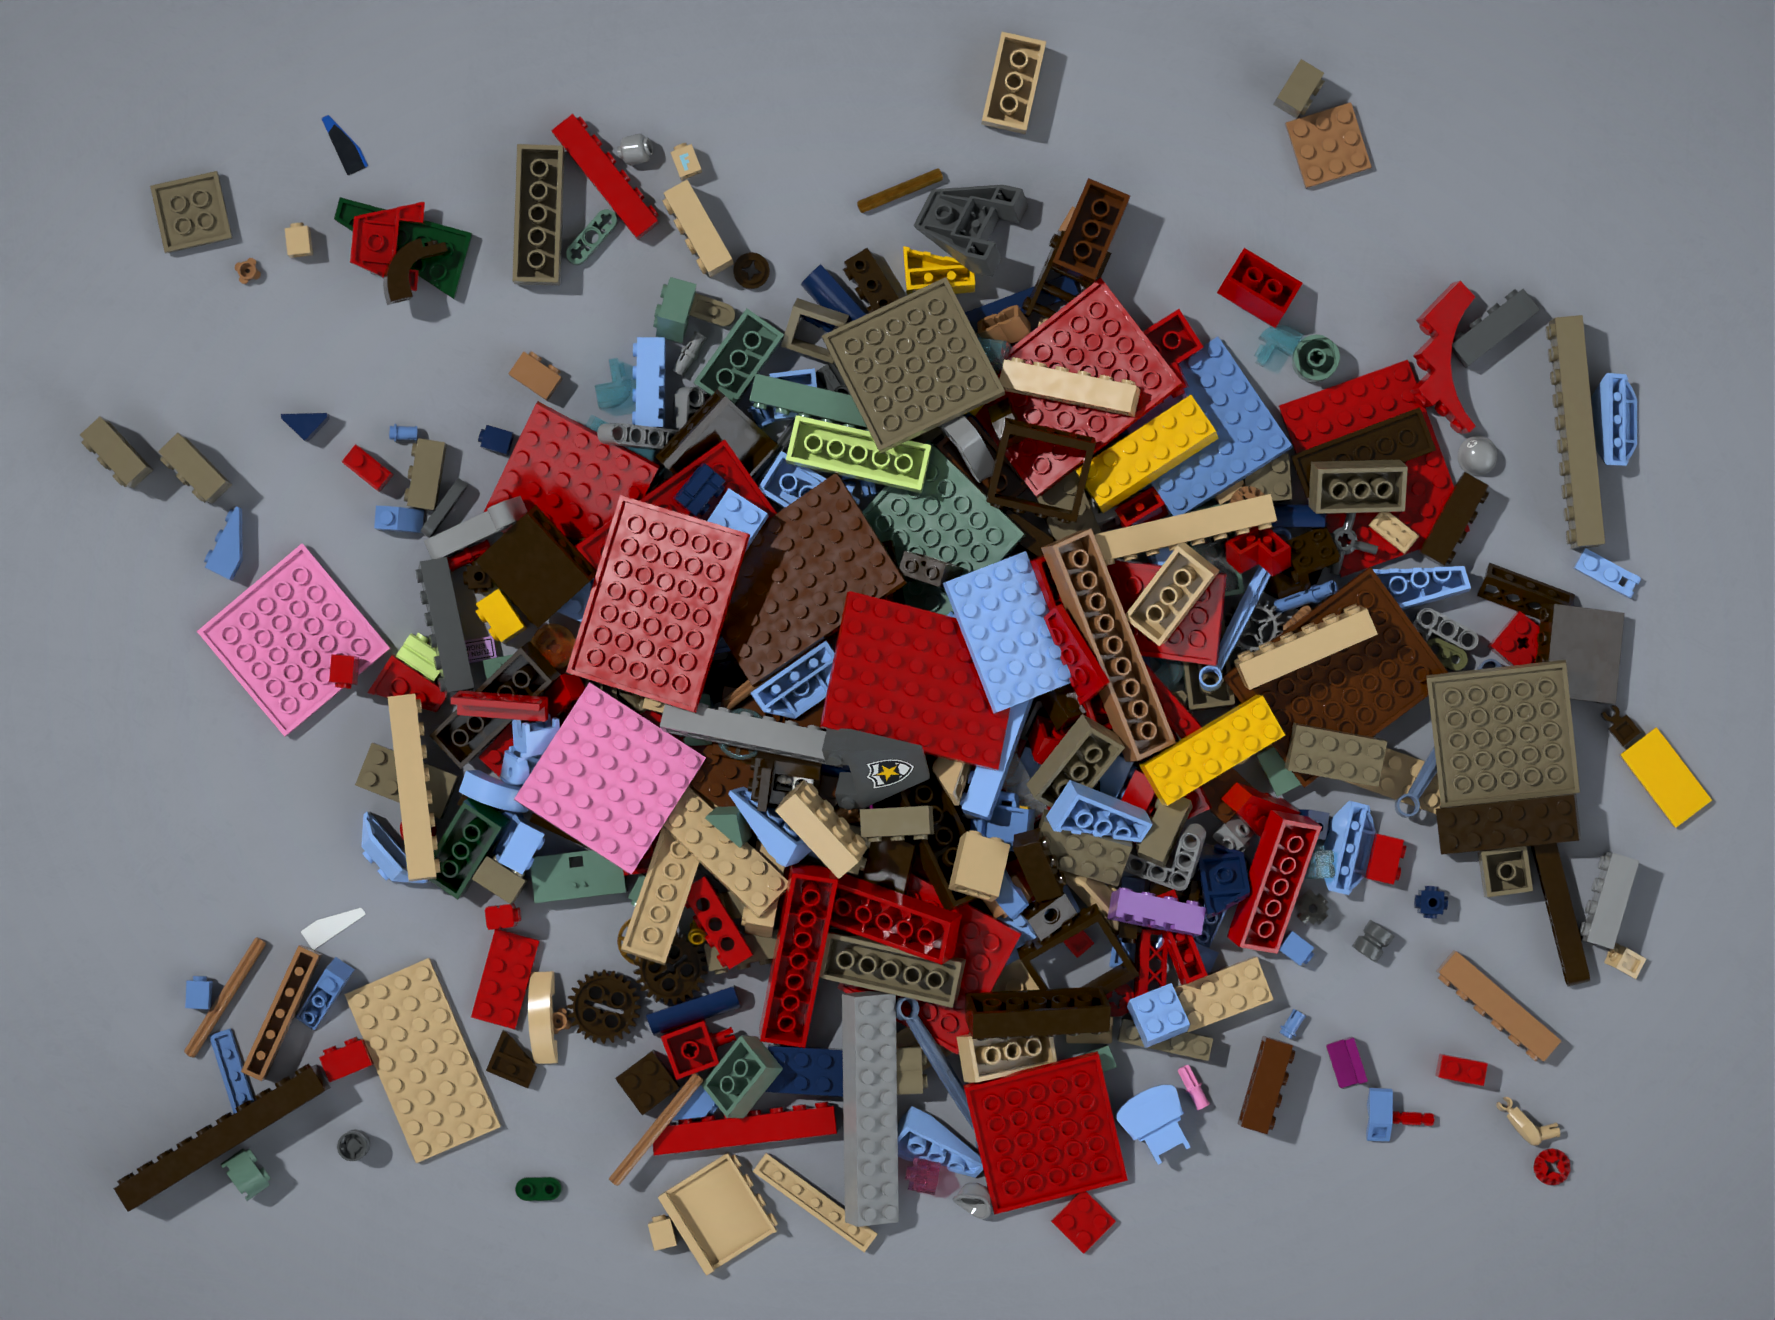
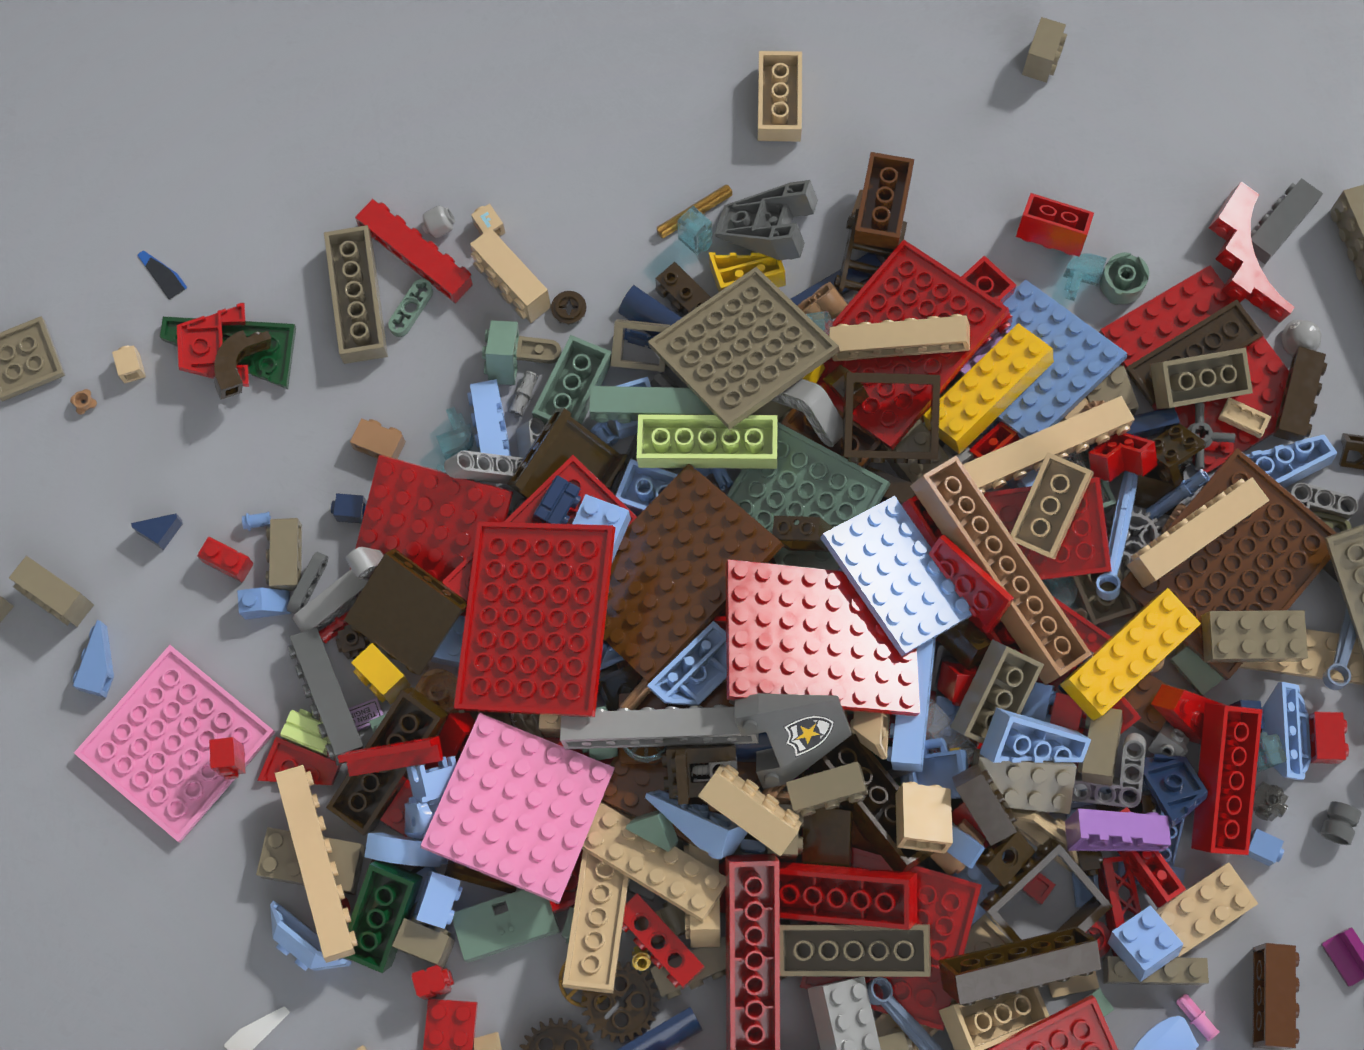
camera: 10 degrees left, 15 degrees down
(895, 218) = (695, 231): none -> clear light blue brick
(1292, 1024) = (1282, 925): medium blue pin -> none
(1328, 145) = (1082, 97): medium nougat plate -> none

